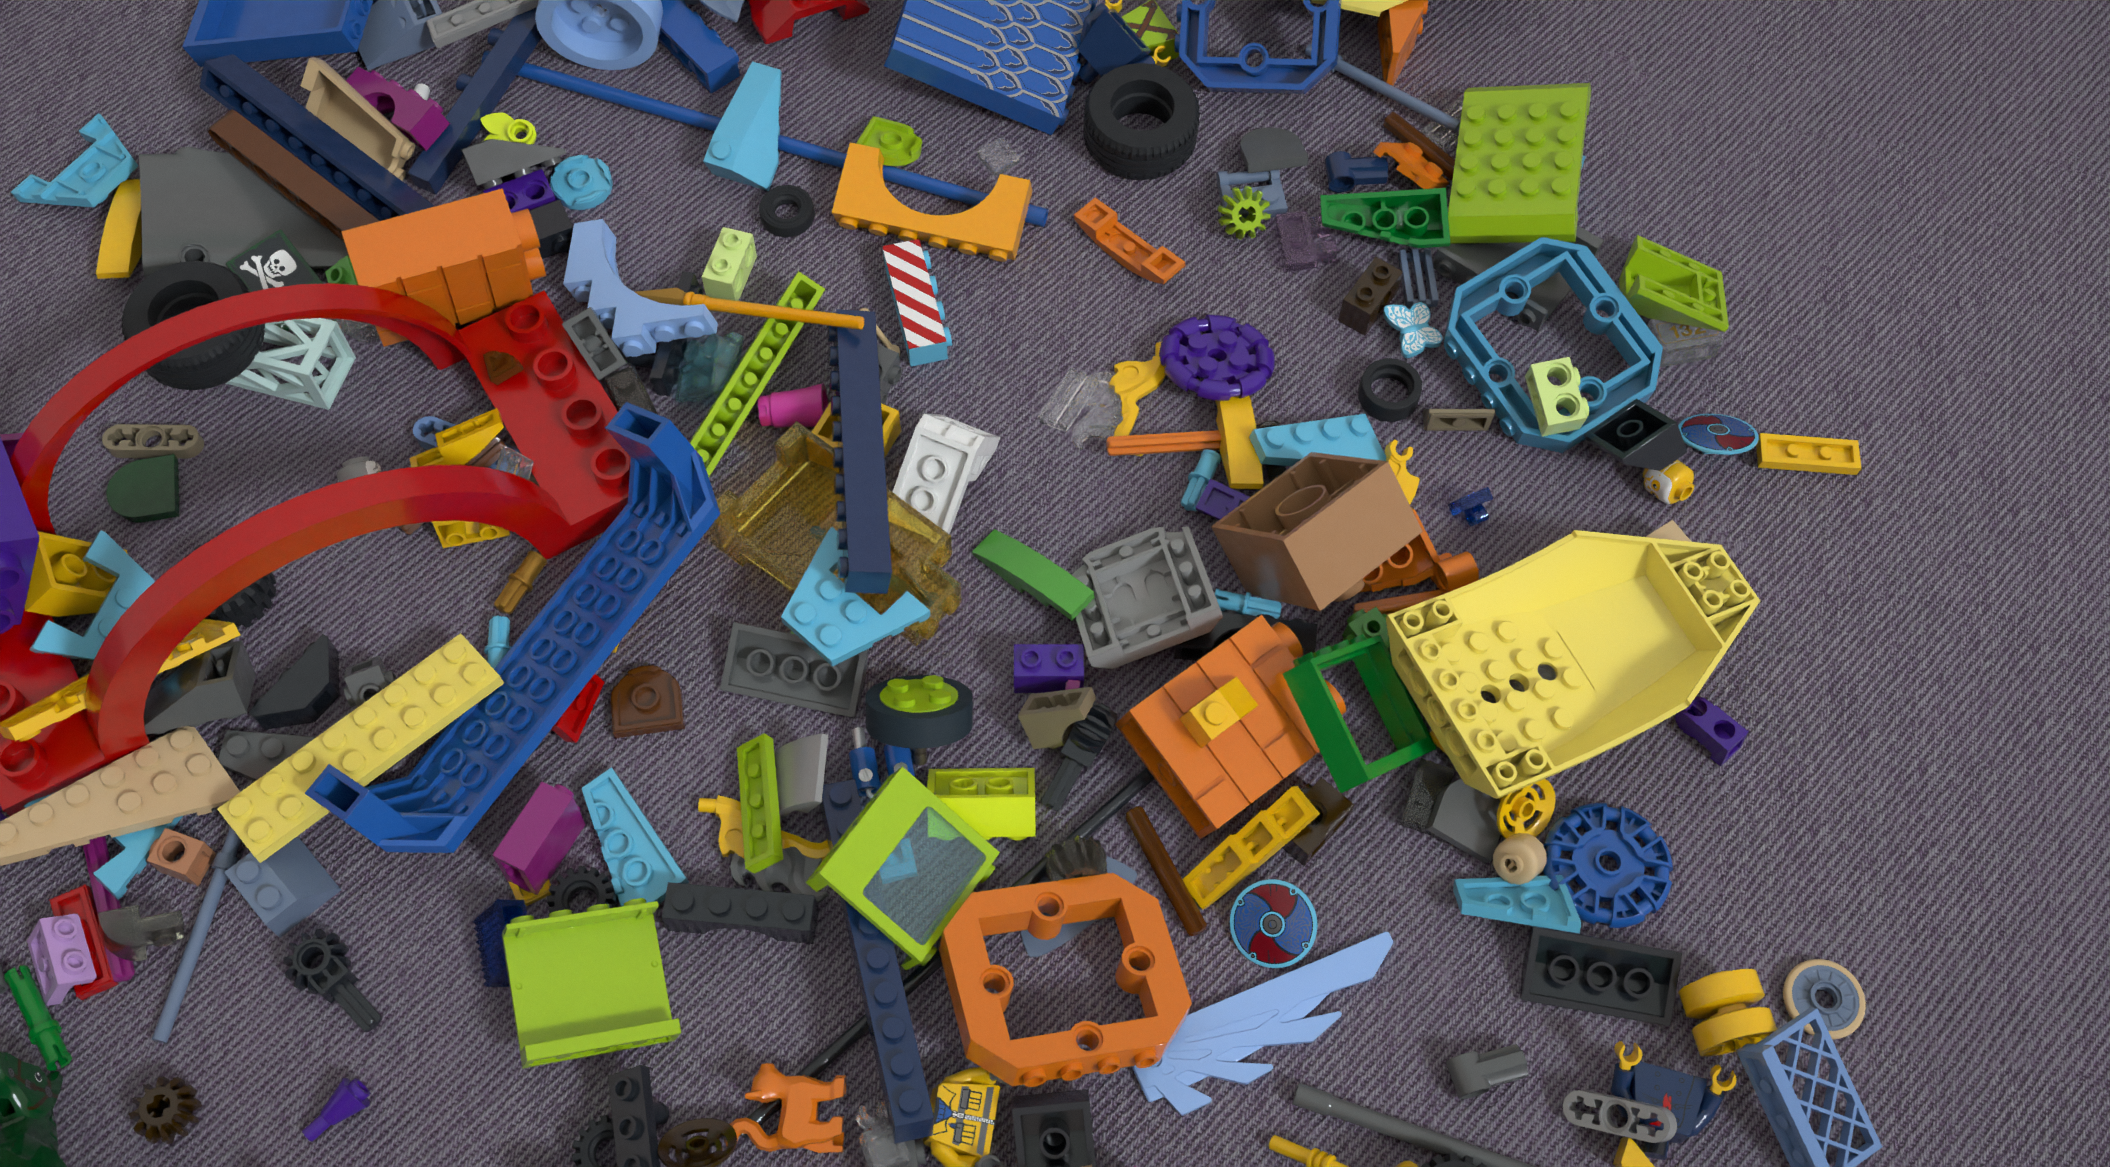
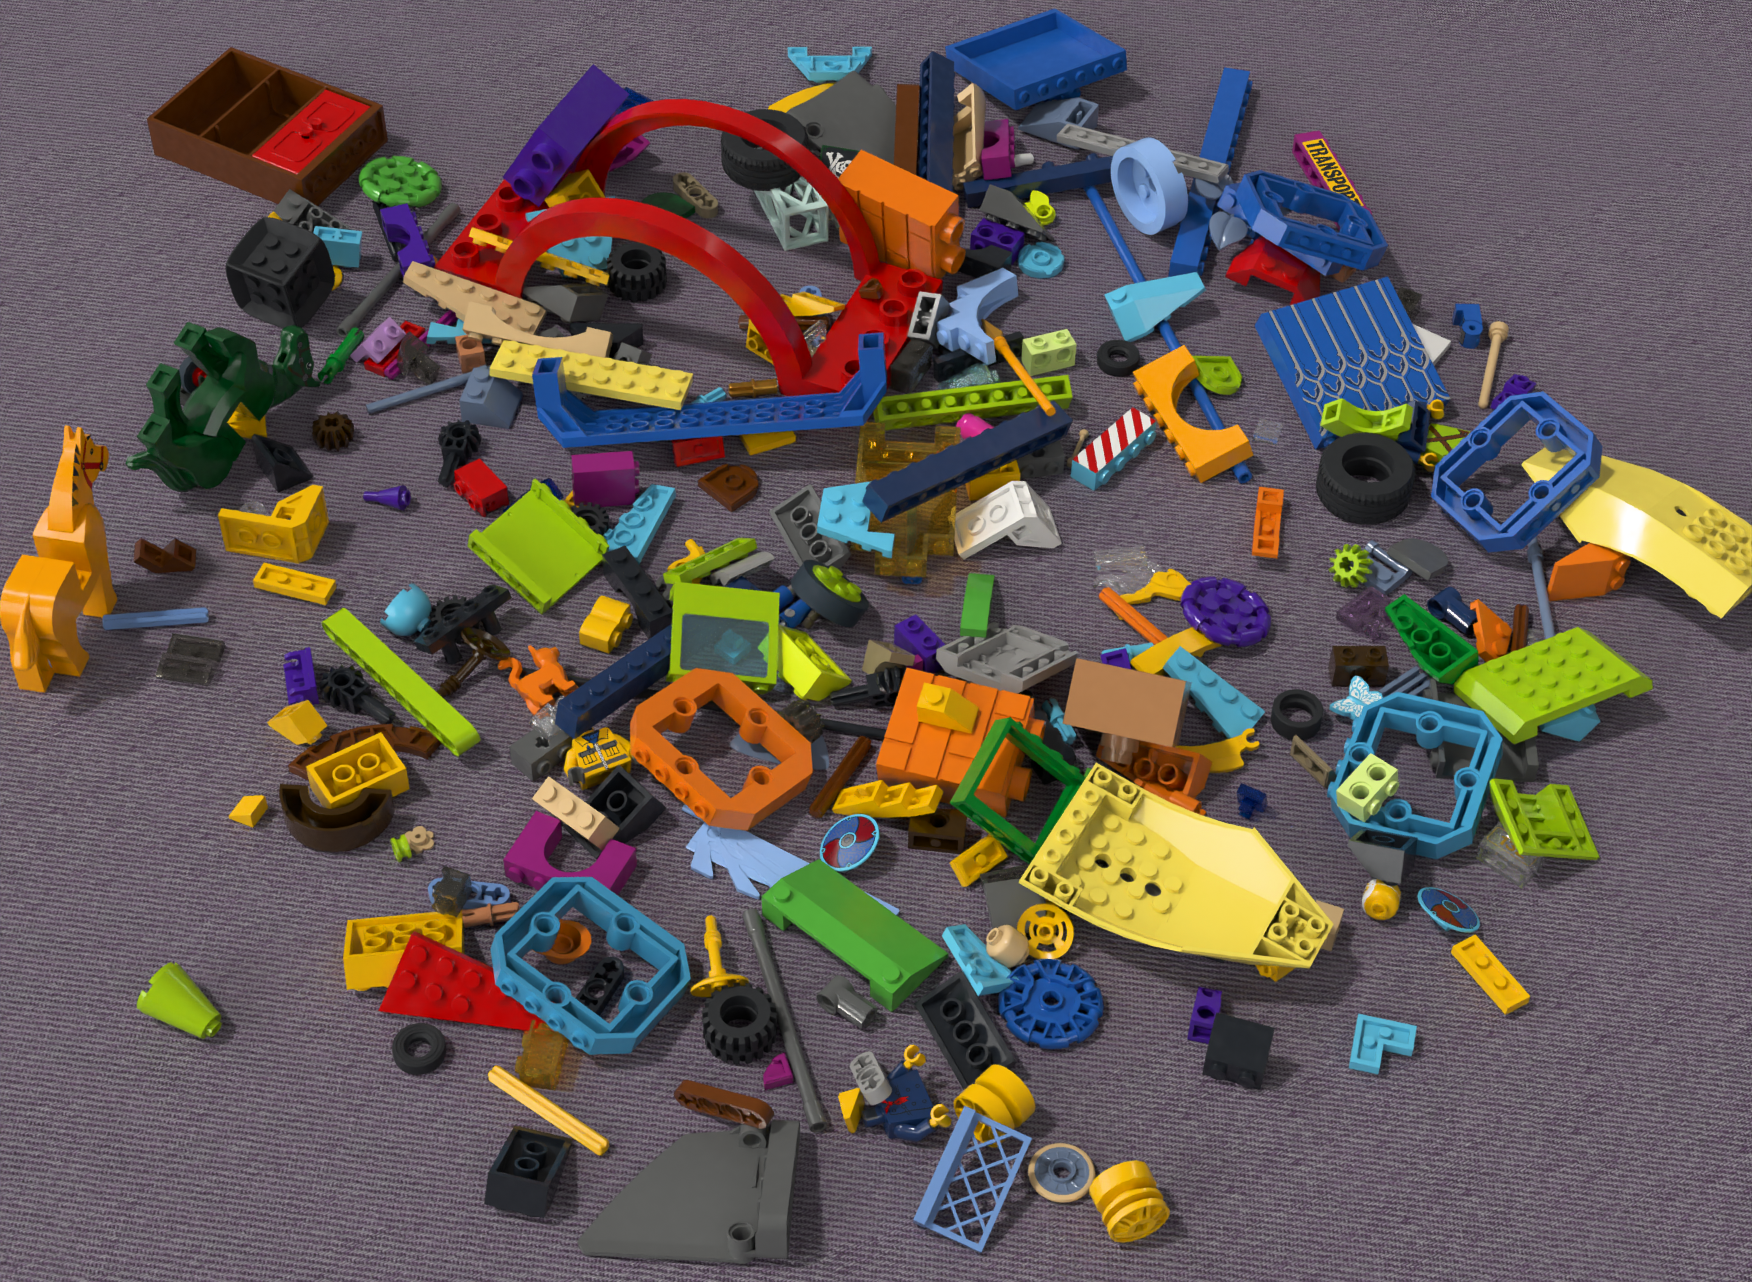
camera: 55 degrees right, 15 degrees down
(167, 815) = (483, 323): none -> tan arch
(420, 987) = (480, 487): none -> red hinge
(758, 979) = (605, 624): none -> yellow brick
(1075, 77) = (1344, 419): none -> lime arch
(1380, 811) = (978, 860): none -> yellow plate
(1395, 998) = (855, 930): none -> bright green slope
(1788, 736) = (1238, 1051): none -> black slope
(1824, 604) = (1377, 1035): none -> medium azure plate
(1919, 962) = (1129, 1201): none -> yellow wheel

